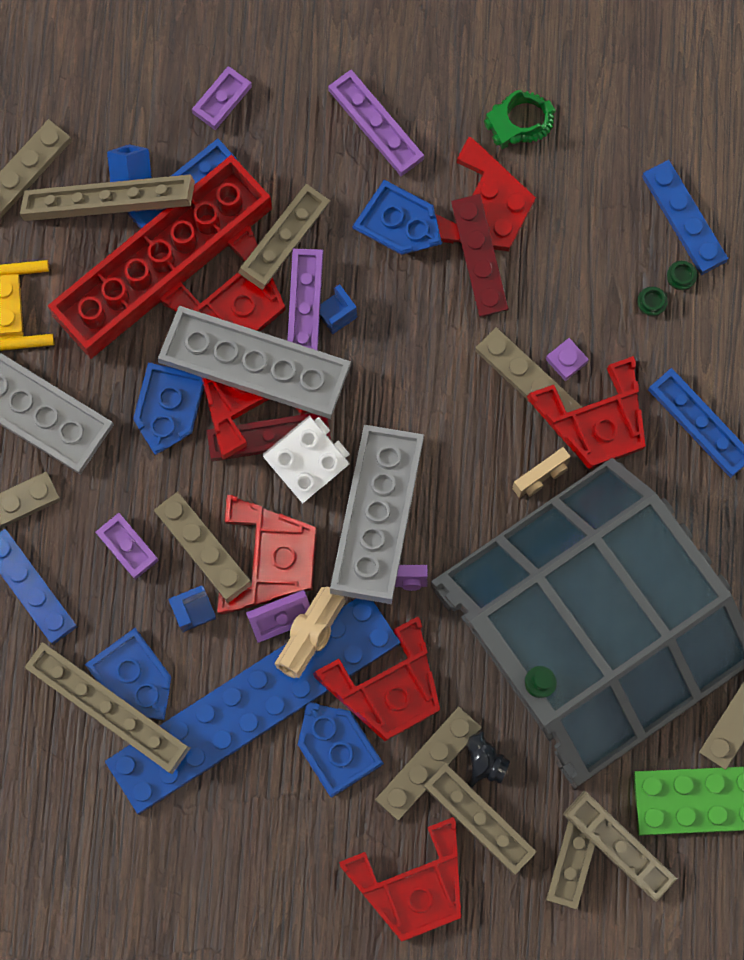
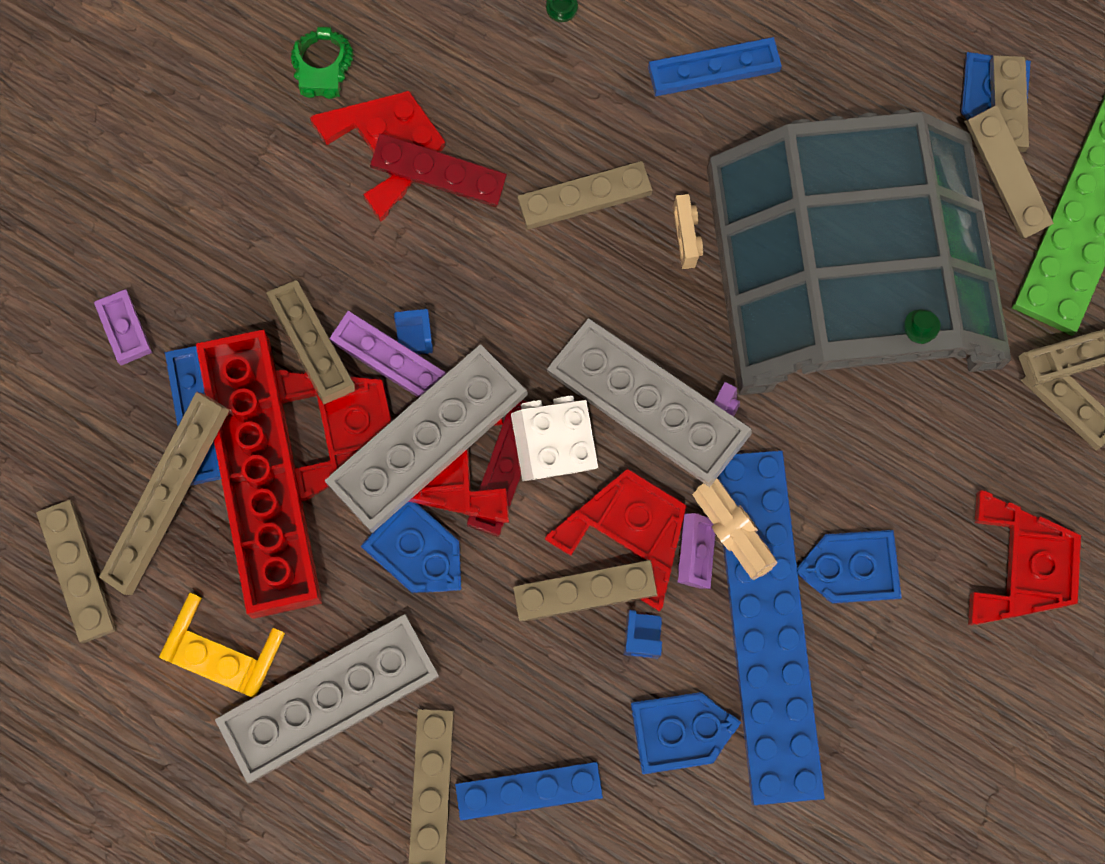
camera: 70 degrees left, 0 degrees up
(107, 708) = (704, 773): dark tan plate -> none
(126, 546) = (542, 667): medium lavender plate -> none
(129, 163) = (138, 455): blue panel -> none
(376, 122) = (241, 194): medium lavender plate -> none
(394, 697) = (835, 481): red wing -> none
(399, 220) = (357, 226): blue tile -> none
(439, 749) = (913, 489): dark tan plate -> none
(479, 819) = (992, 468): dark tan plate -> none
(485, 760) = (941, 433): black animal -> none
(567, 359) = (584, 150): medium lavender plate -> none
(602, 428) = (674, 152): red wing -> none
(652, 301) = (572, 45): dark green plate -> none

